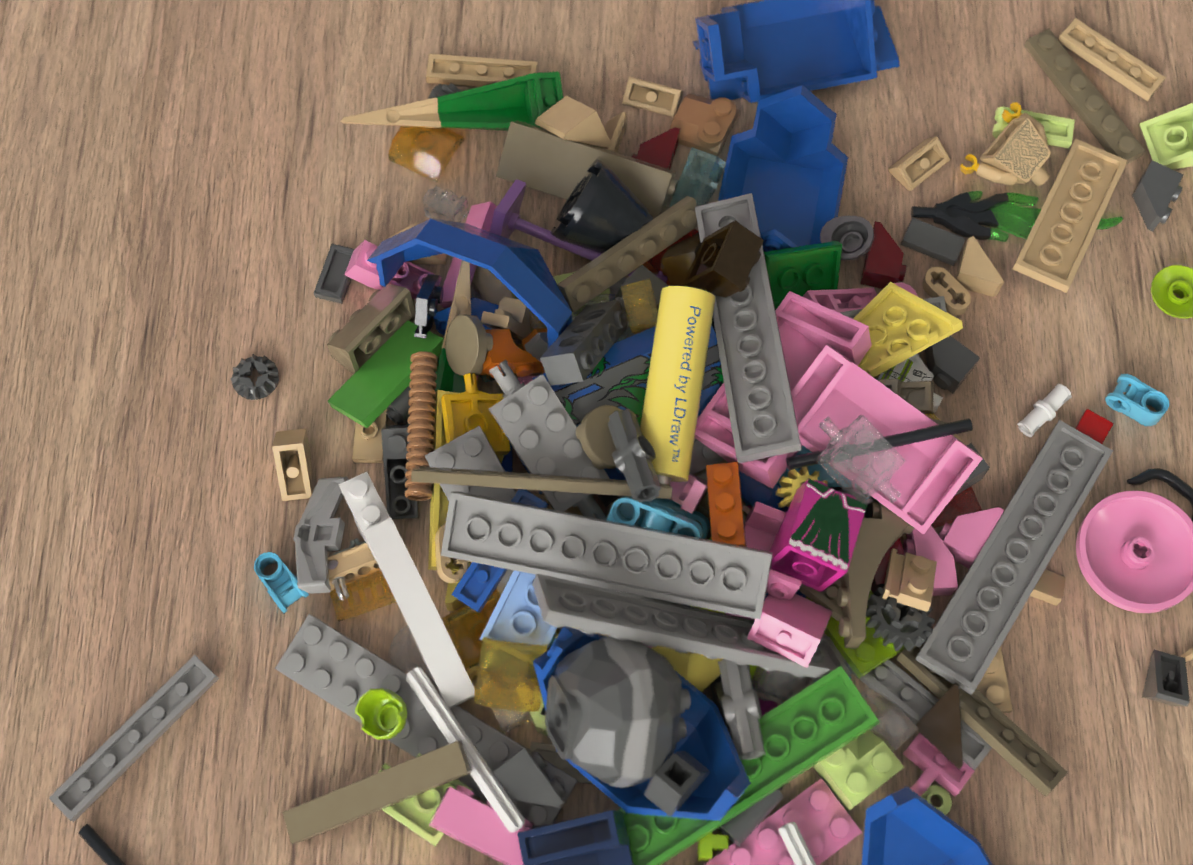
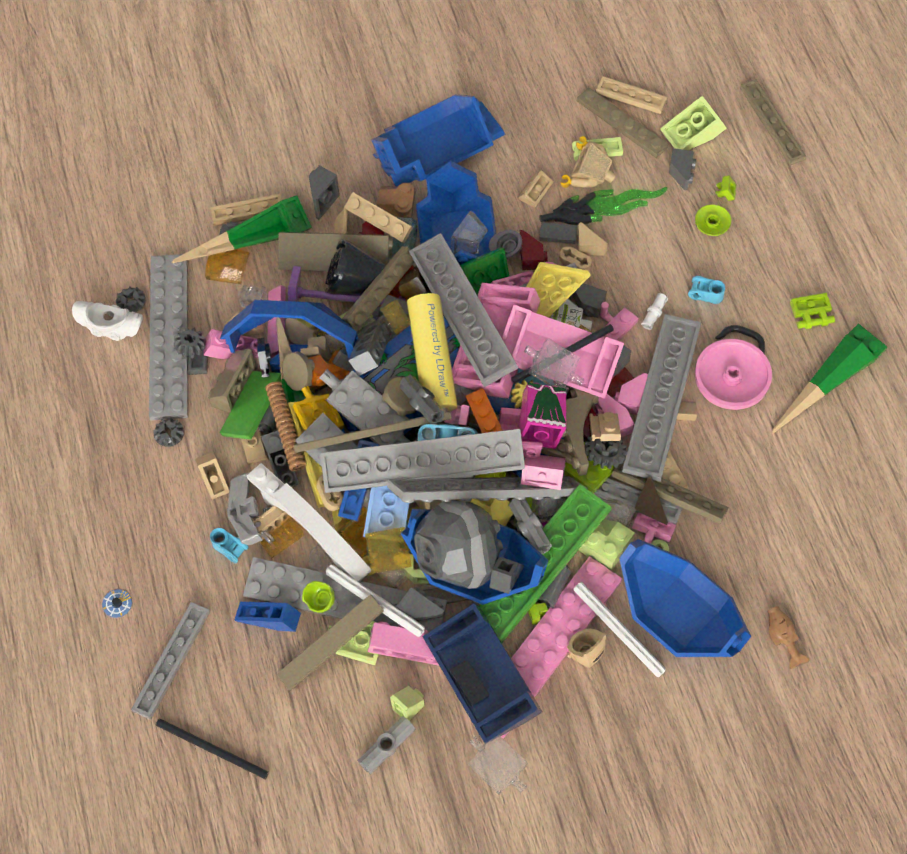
camera: 15 degrees left, 5 degrees down
(91, 619) = (117, 603): none -> medium blue piece
(202, 166) = (91, 316): none -> white piece
(270, 169) = (133, 305): none -> dark grey gear
(301, 714) = (268, 615): none -> blue slope
(303, 235) = (167, 315): none -> light grey plate
(324, 240) = (189, 342): none -> dark grey gear
(574, 123) = (317, 222): tan slope -> none
(600, 73) = (323, 190): none -> dark grey slope
(652, 96) = (366, 192): tan slope -> none
(668, 140) = (378, 217): none -> tan plate
(725, 261) = (438, 274): dark brown slope -> none
(794, 207) = (468, 235): none -> clear slope
(916, 393) = (577, 320): dark tan slope -> none
(985, 413) = (621, 322): none -> bright pink plate
(1070, 215) = (635, 194): tan plate -> none
(1094, 426) = (686, 311): red tile -> none
(1167, 679) = (770, 441): dark grey slope -> none

